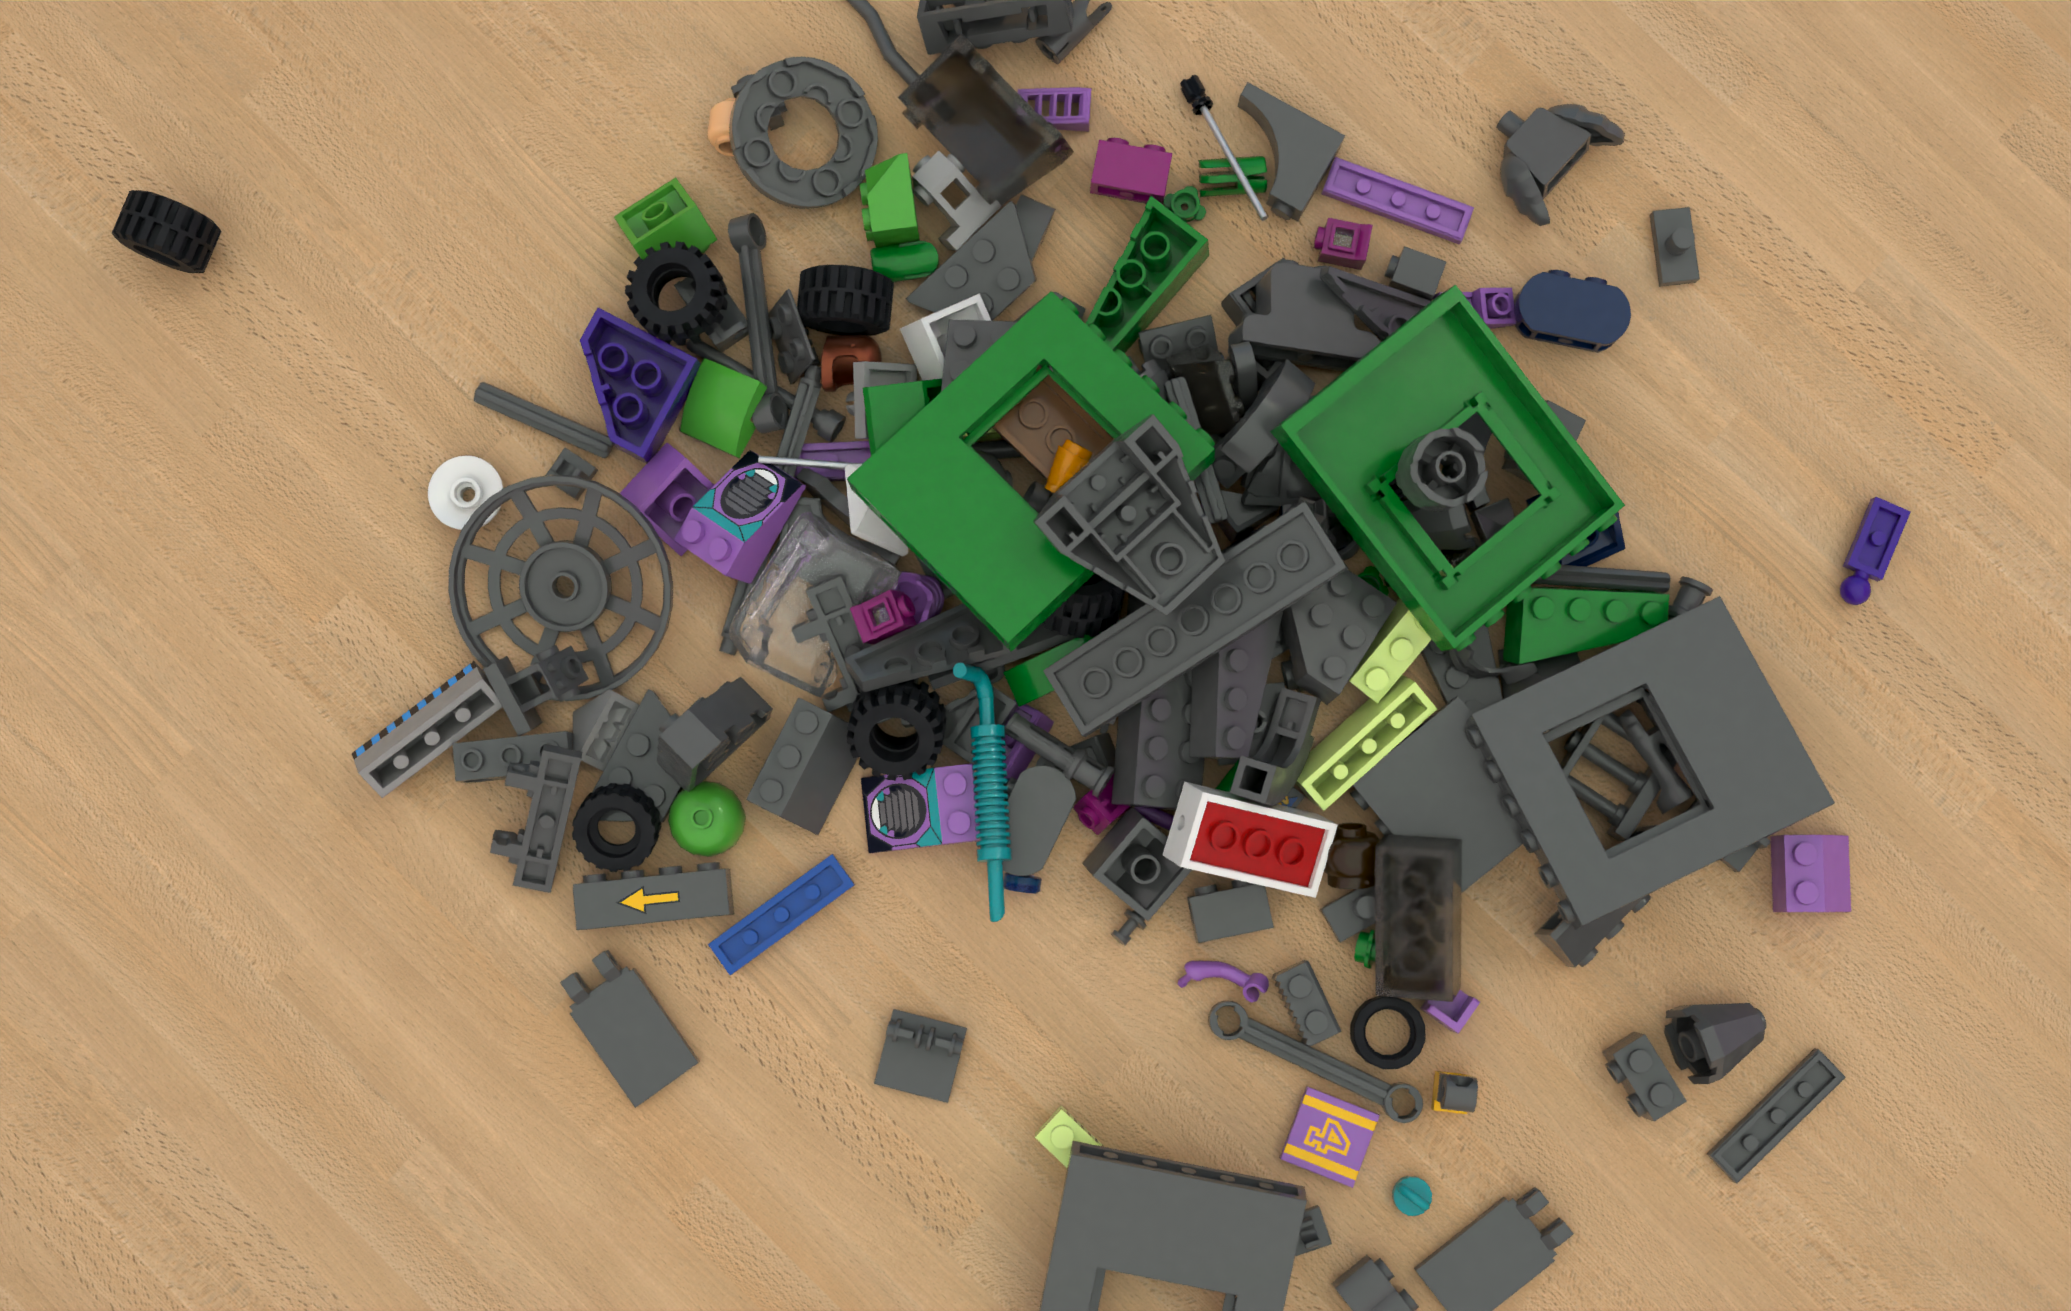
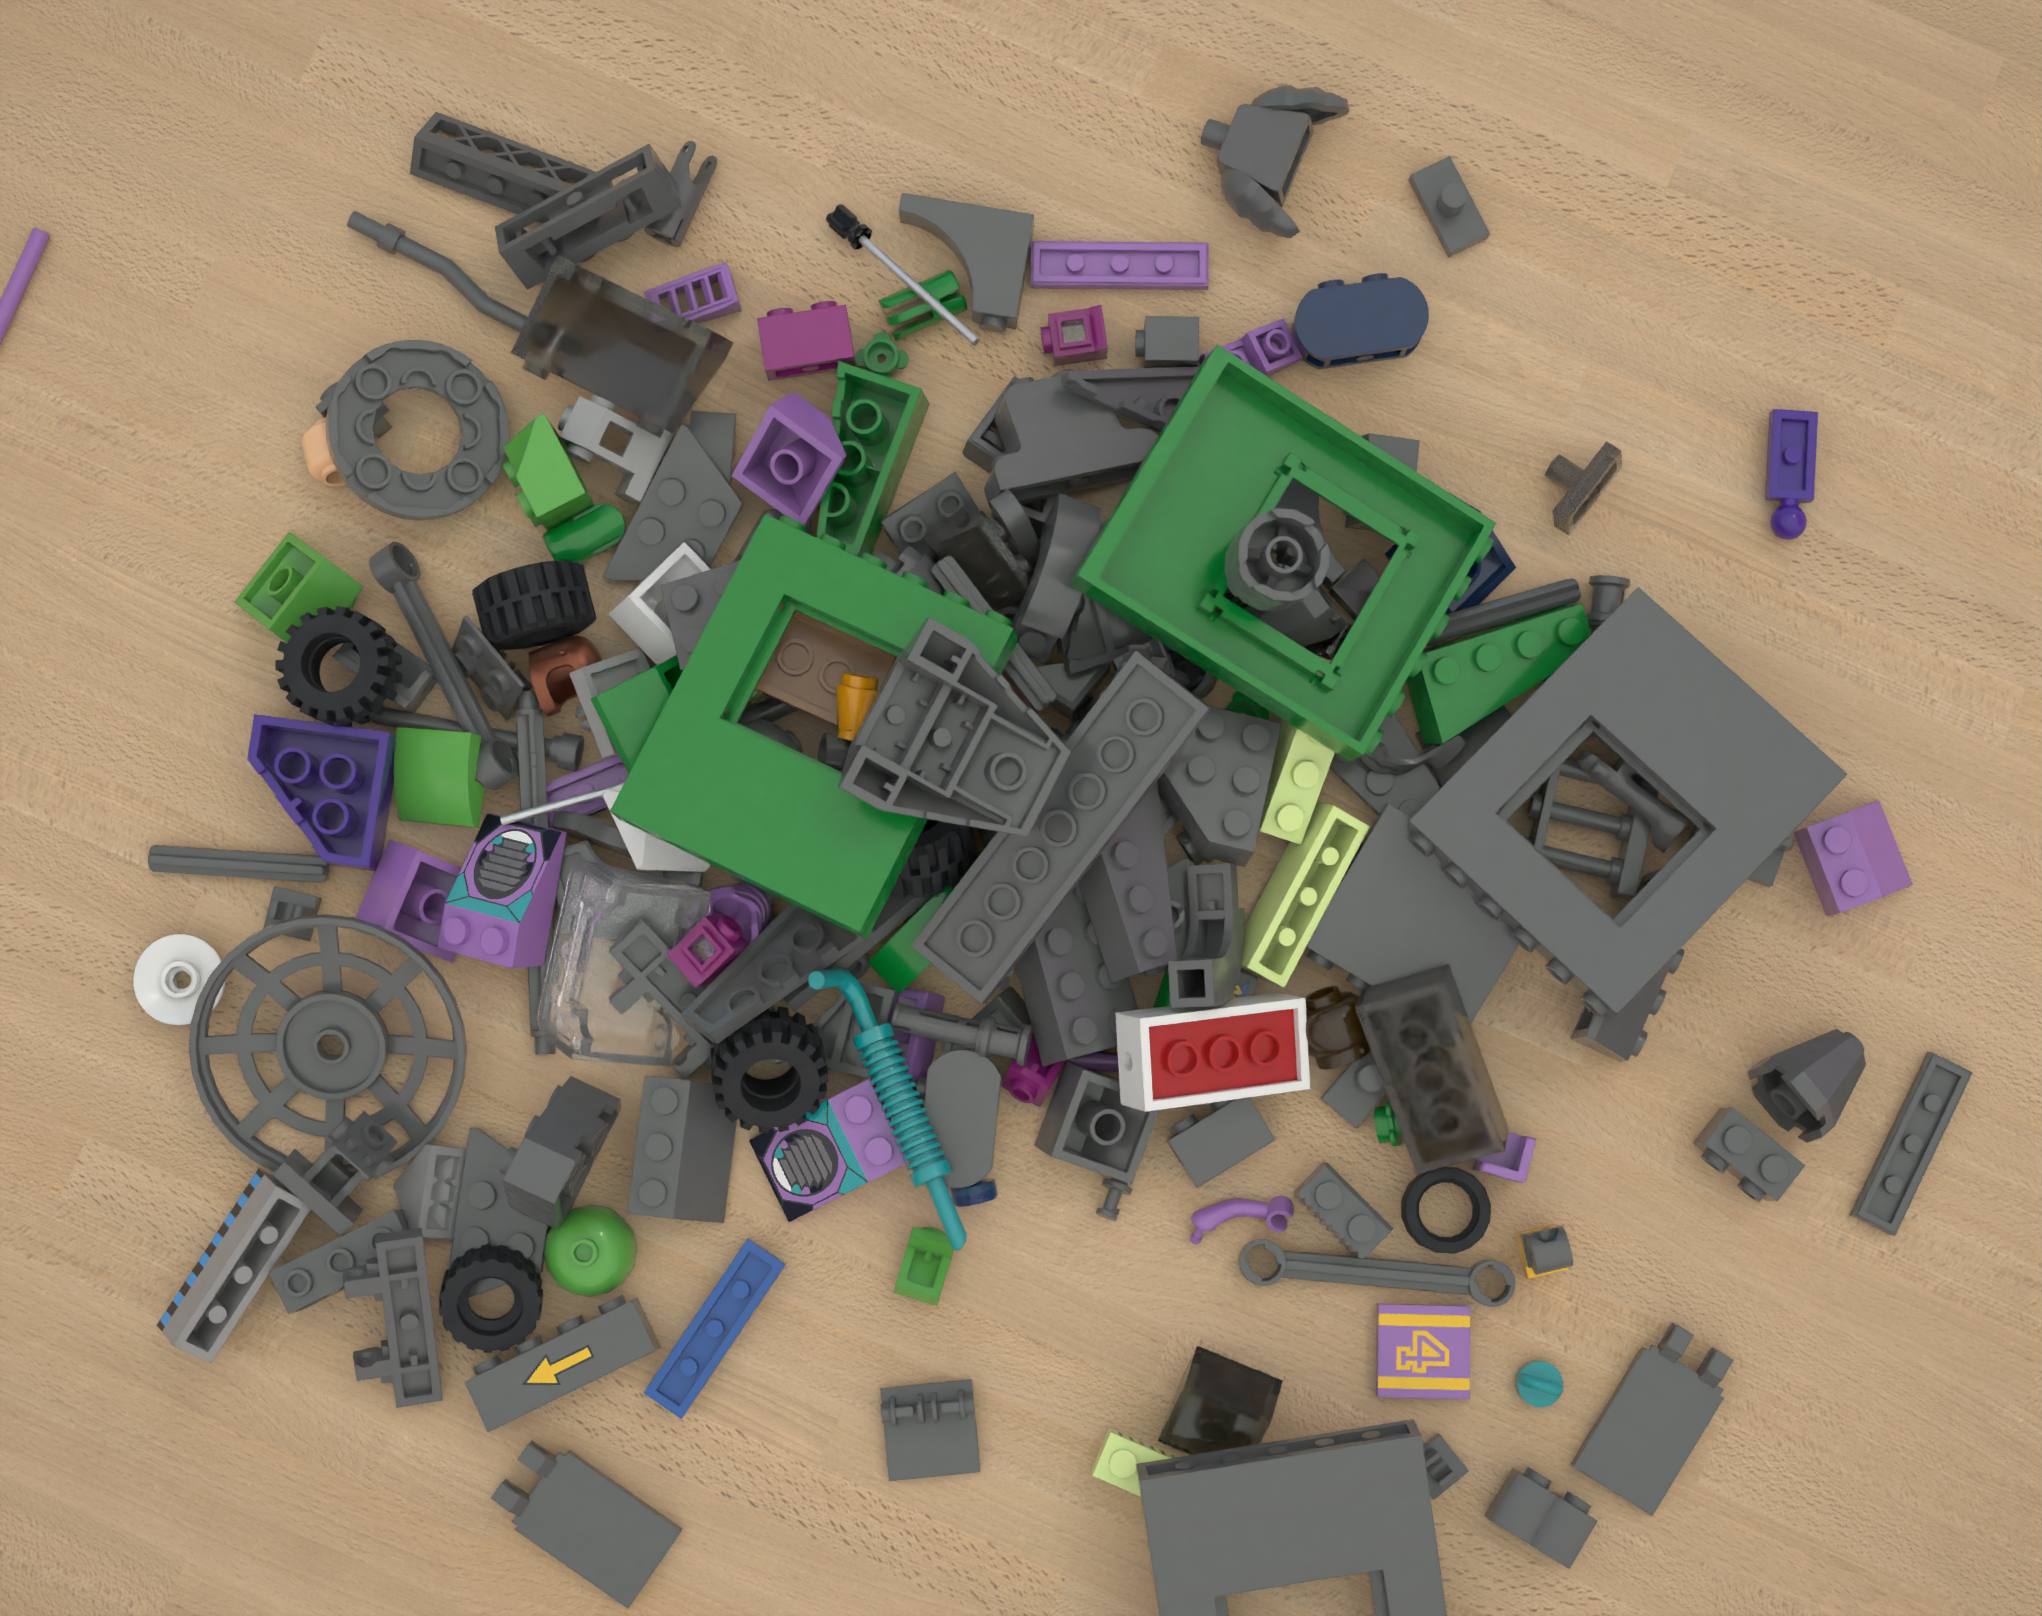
camera: 20 degrees left, 0 degrees up
(962, 925) = (924, 1265): none -> bright green bracket
(1087, 257) = (792, 458): none -> medium lavender slope
(1154, 1119) = (1219, 1405): none -> clear smoke slope
(1700, 502) = (1582, 485): none -> clear smoke tile

